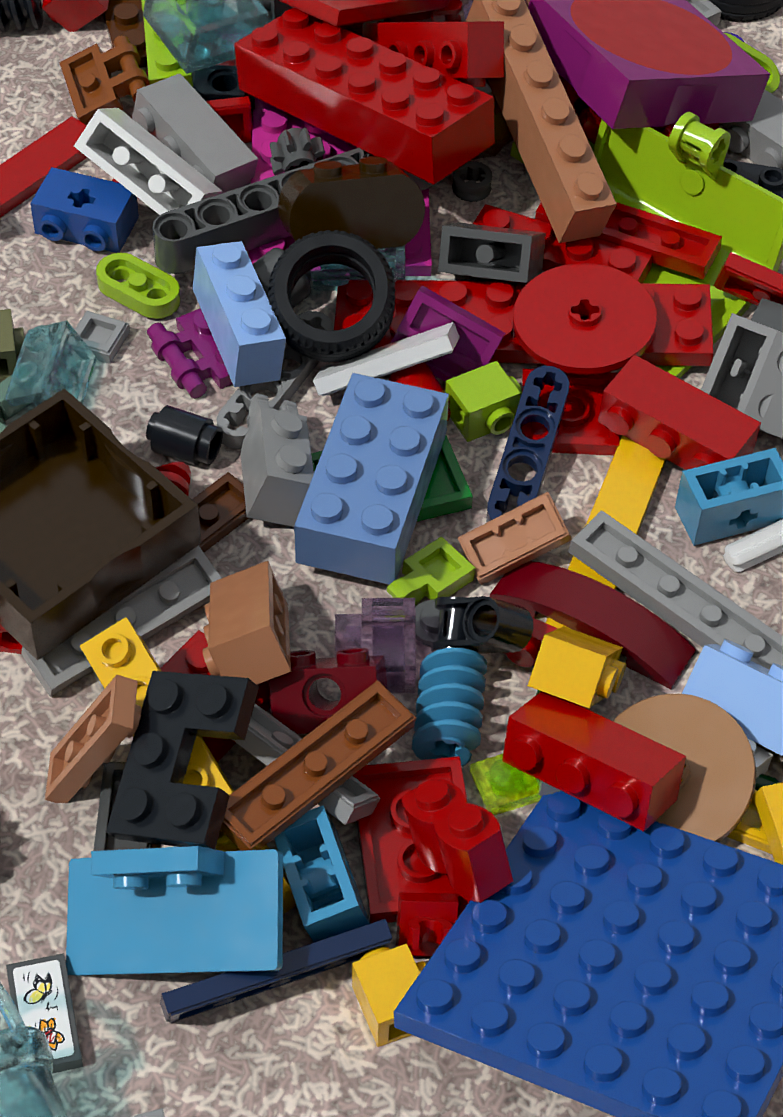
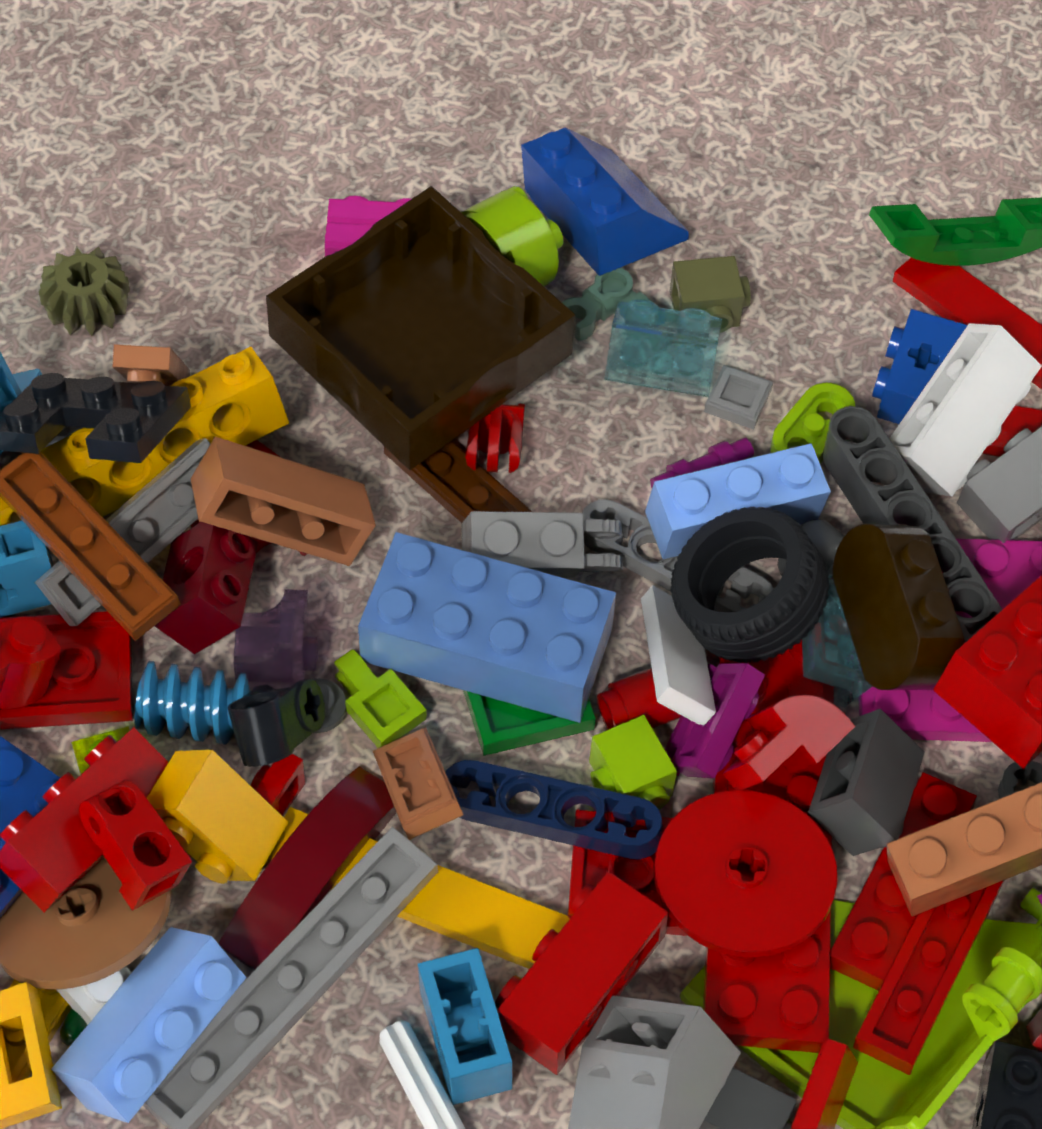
camera: 90 degrees right, 5 degrees up
(150, 609) = (339, 433): light grey plate -> none
(184, 436) = (580, 470): black brick -> none
(295, 150) = (1008, 564): dark grey gear -> none
(475, 282) = (787, 733): none -> brick
(632, 698) = (134, 842): none -> red leg

